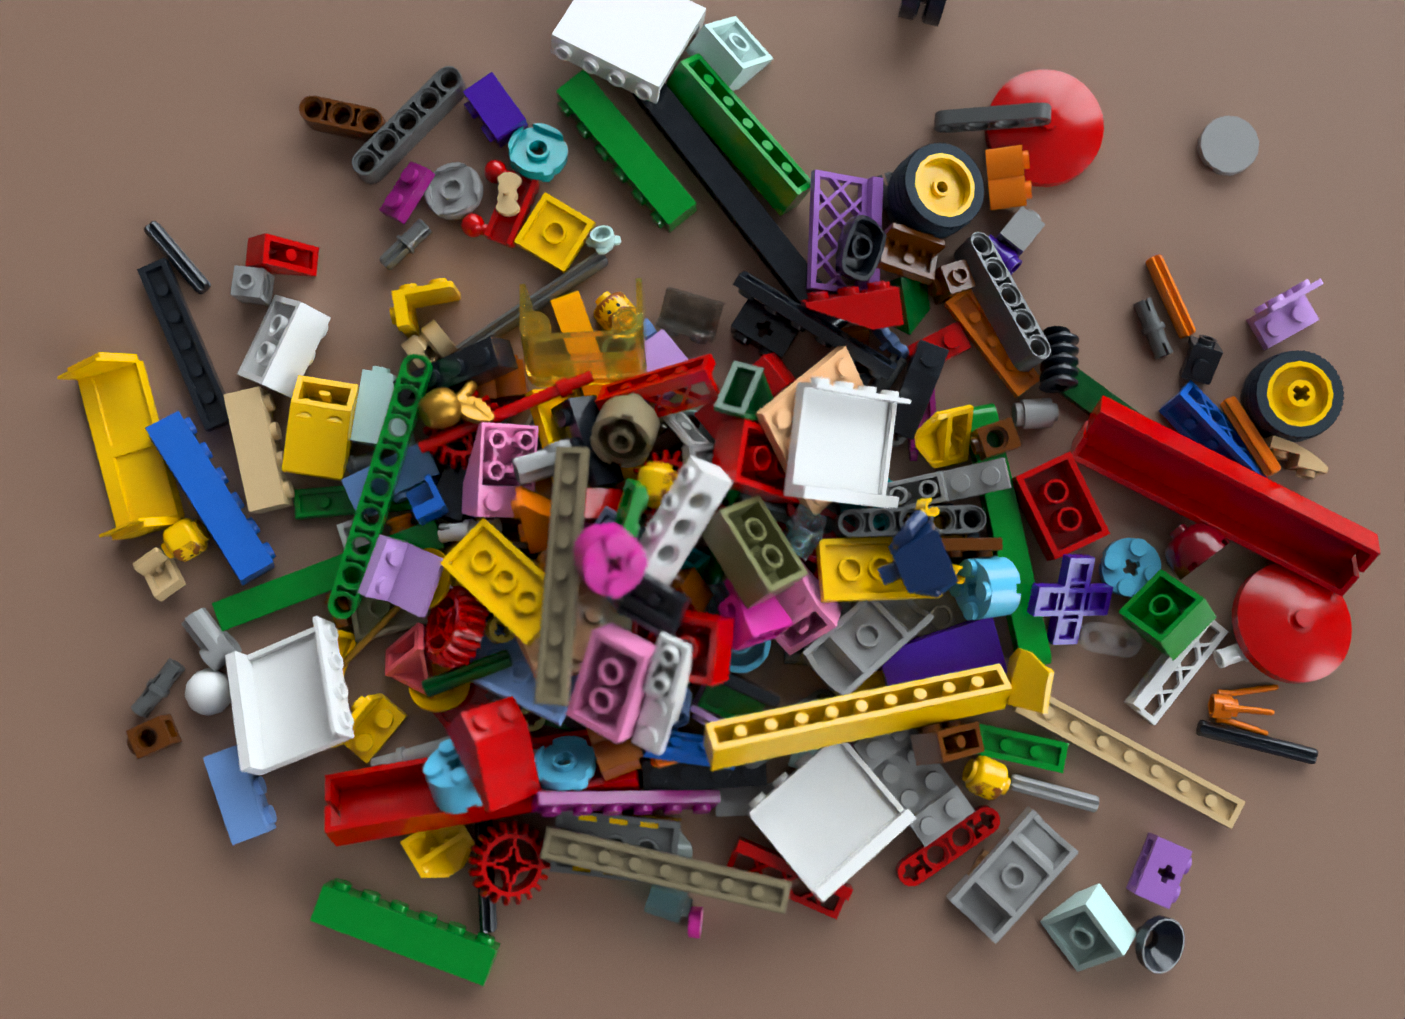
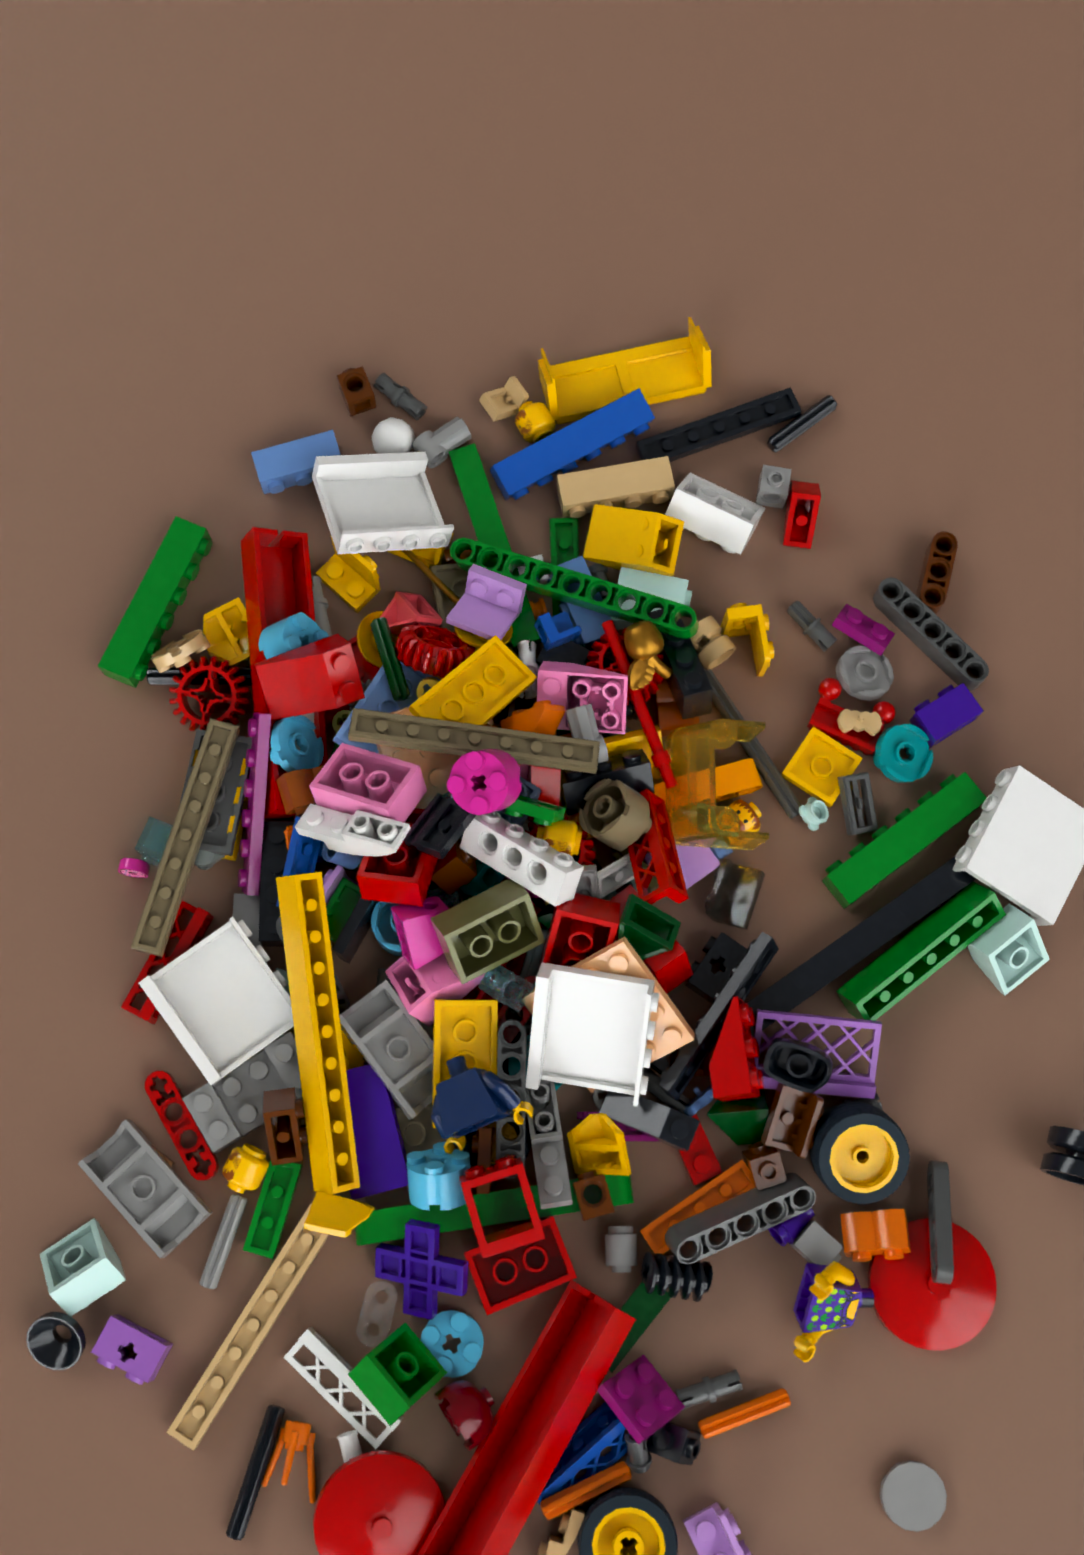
camera: 90 degrees right, 10 degrees down
(464, 899) = (179, 652): none -> tan plate
(592, 200) = (853, 805): none -> dark grey tile
(1041, 513) = (511, 1237): none -> red window
(1071, 221) = (826, 1302): none -> torso
(1170, 388) = (640, 1399): none -> magenta plate
(1216, 390) = (638, 1457): none -> dark grey pin

